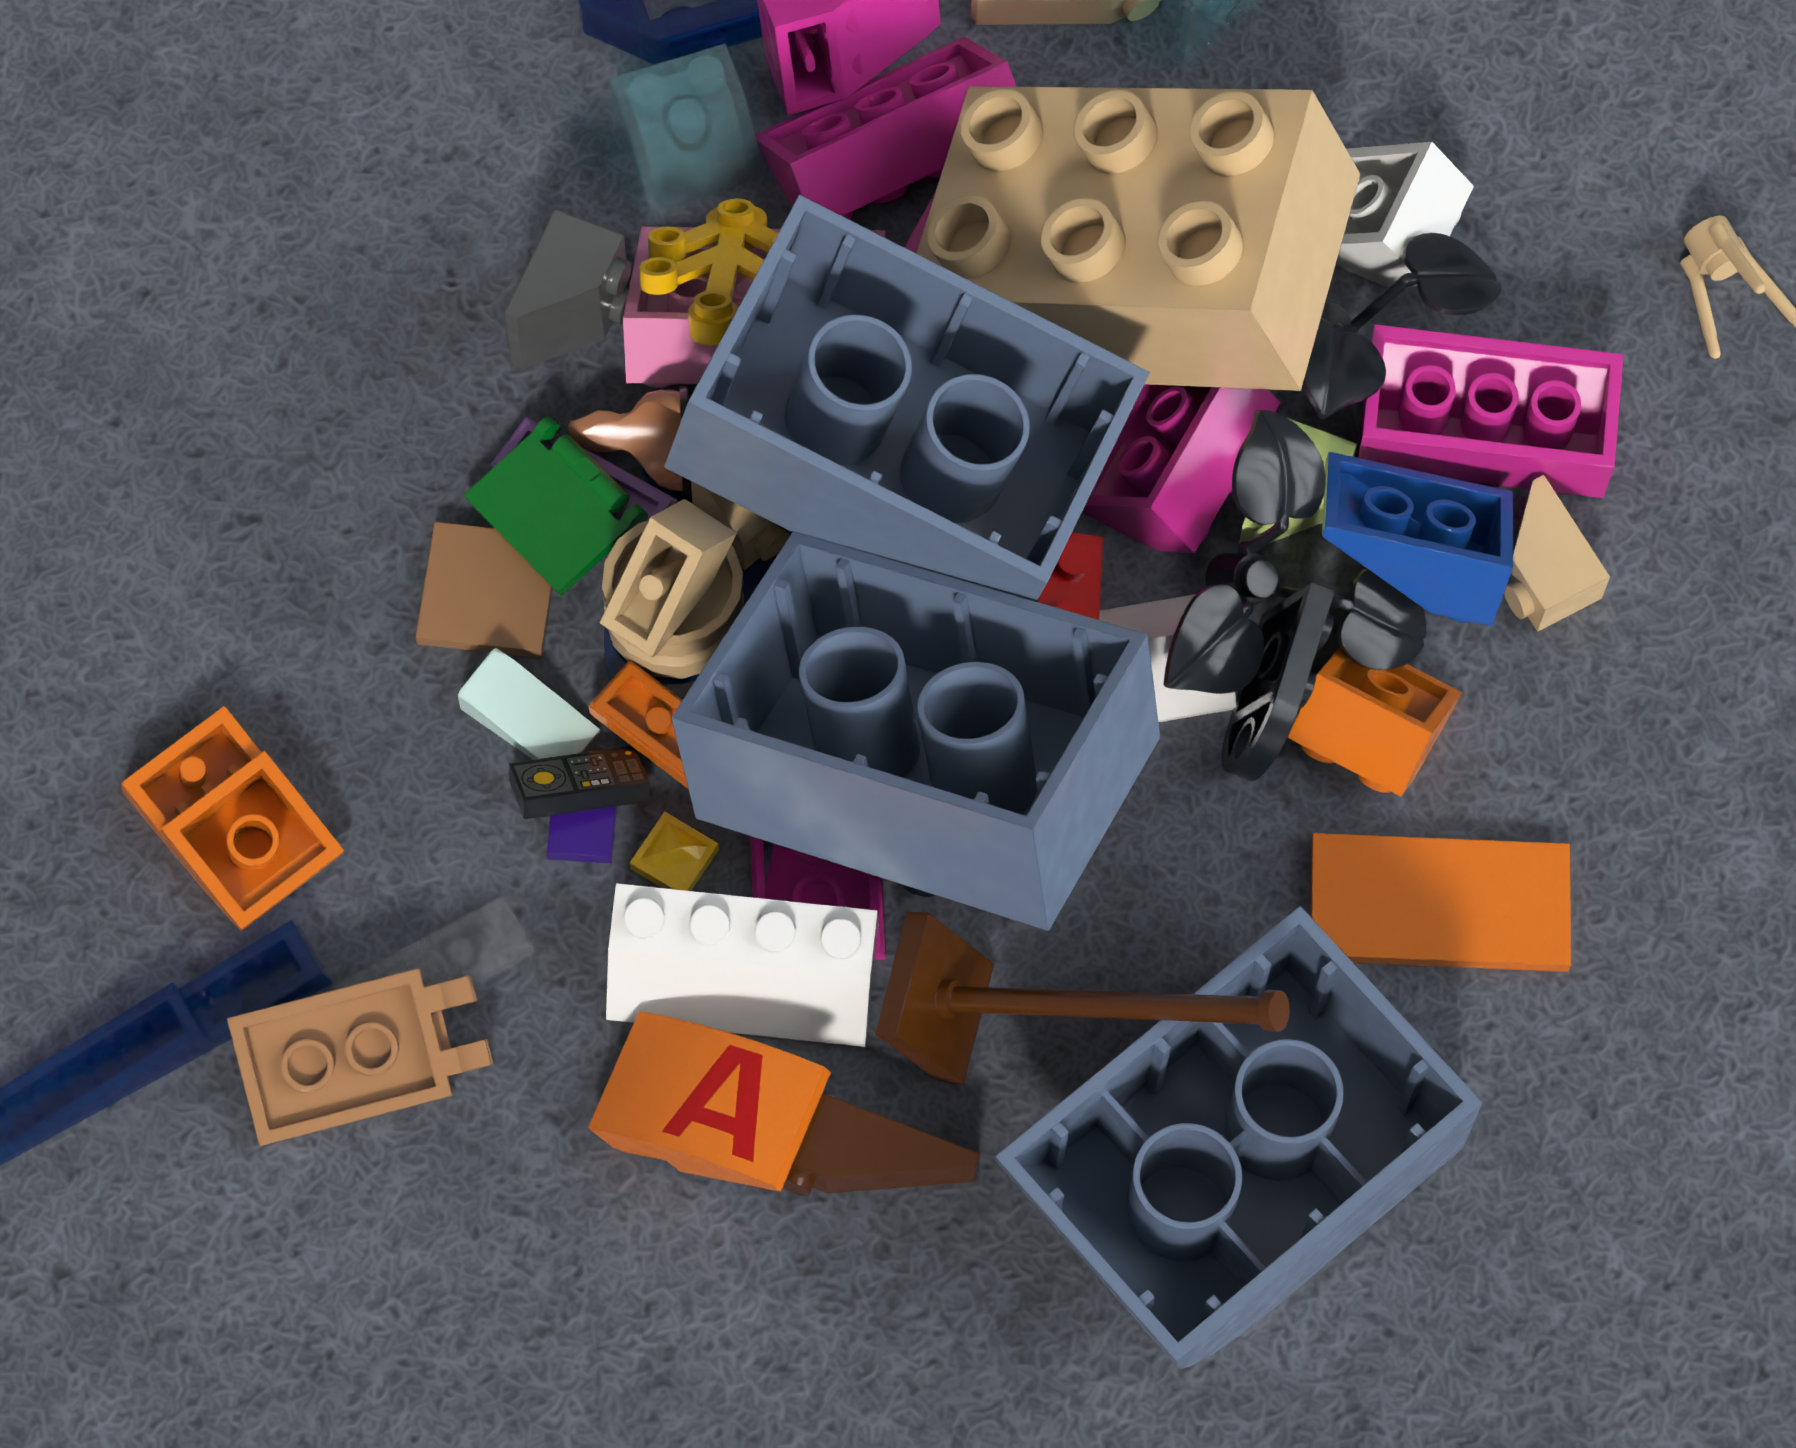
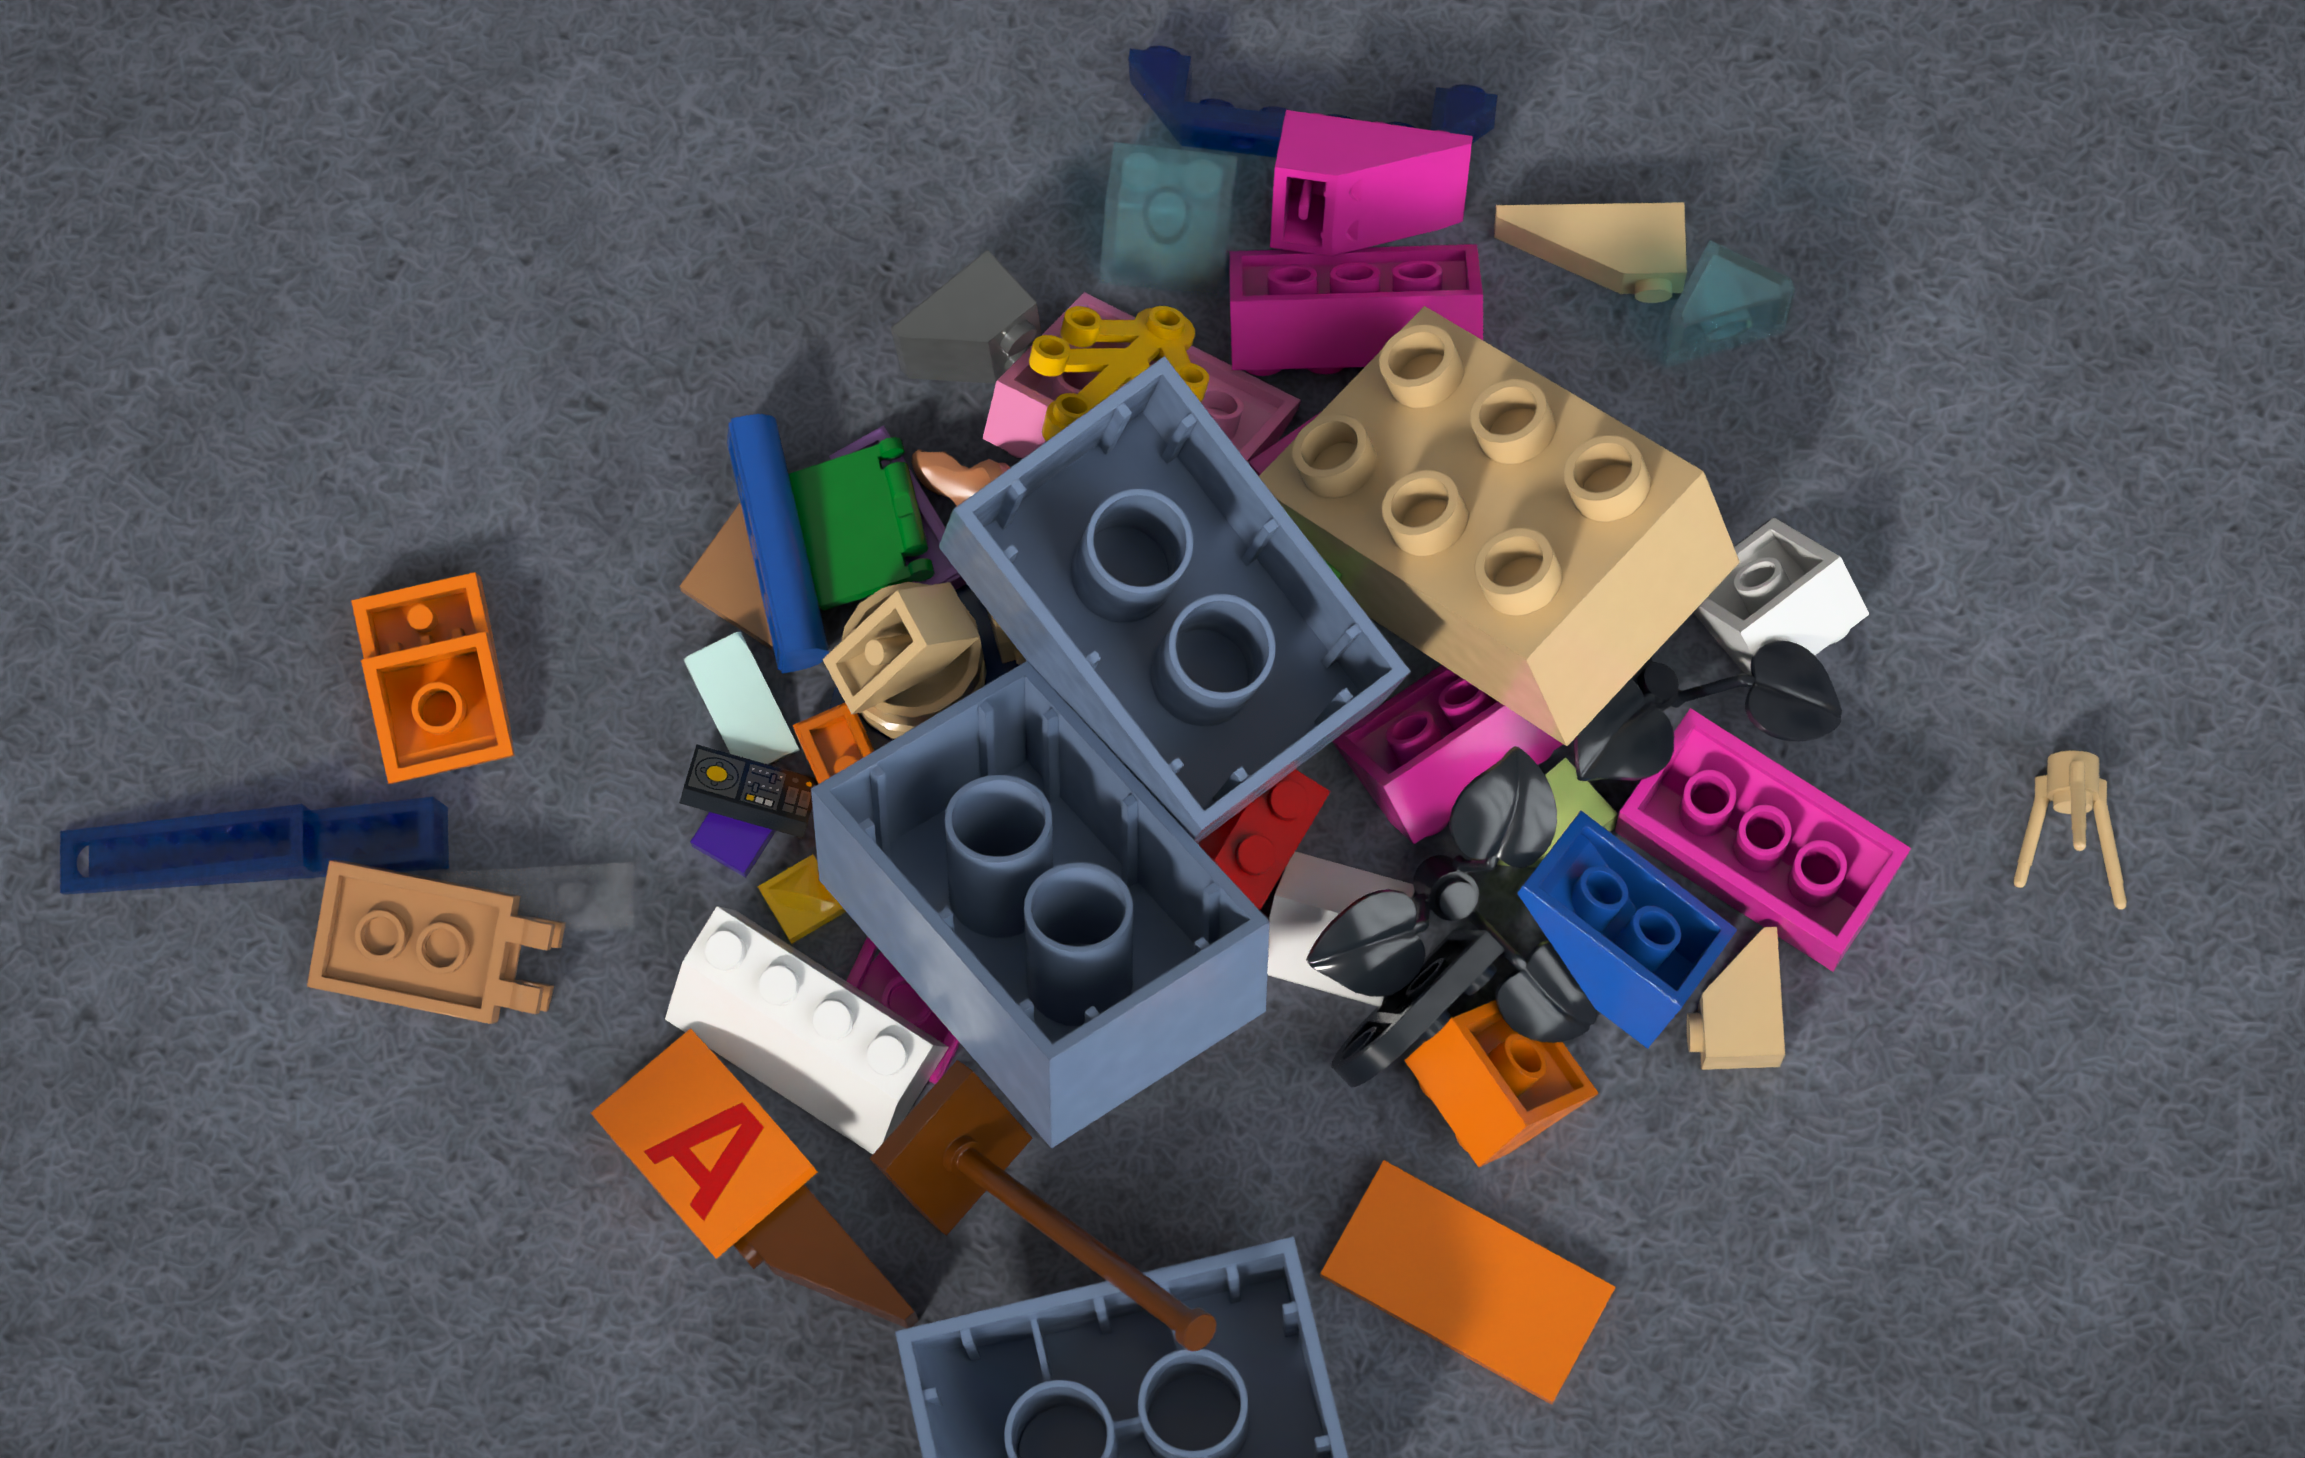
camera: 35 degrees right, 5 degrees up
(488, 556) = (776, 542): none -> blue brick

